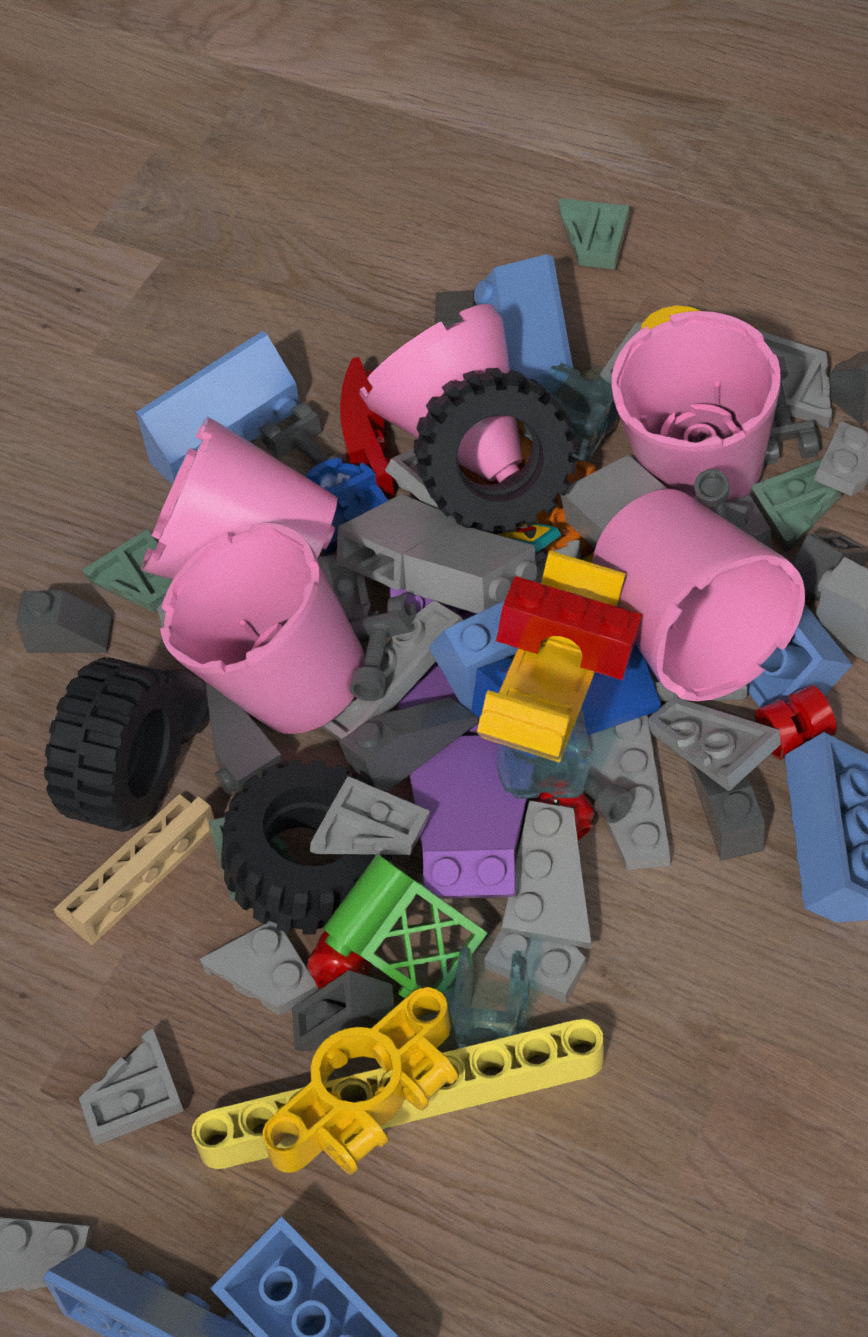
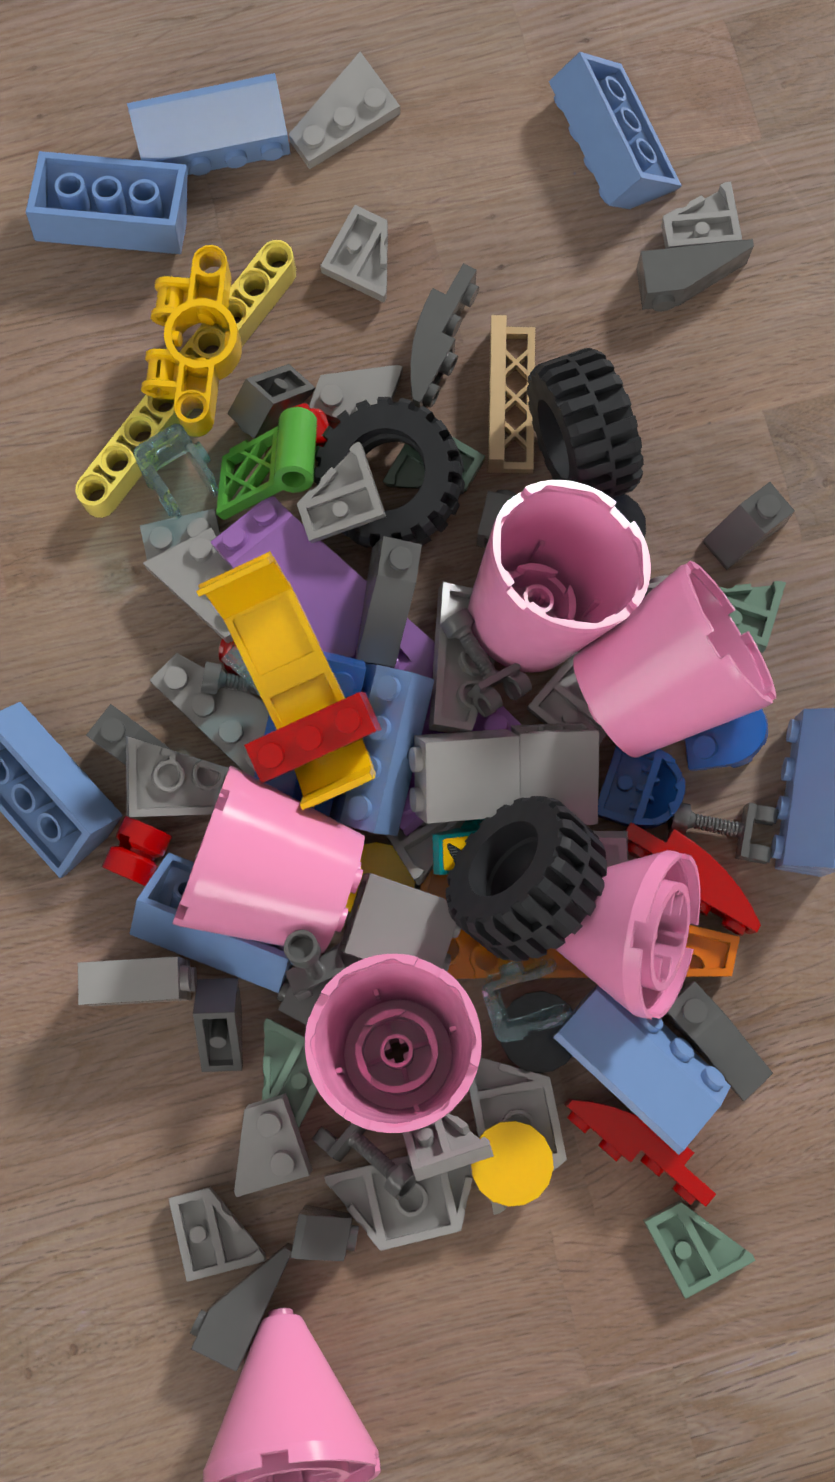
camera: 135 degrees right, 25 degrees up
(164, 951) = (434, 336): none -> dark grey slope
(580, 309) = (627, 1135): none -> red slope

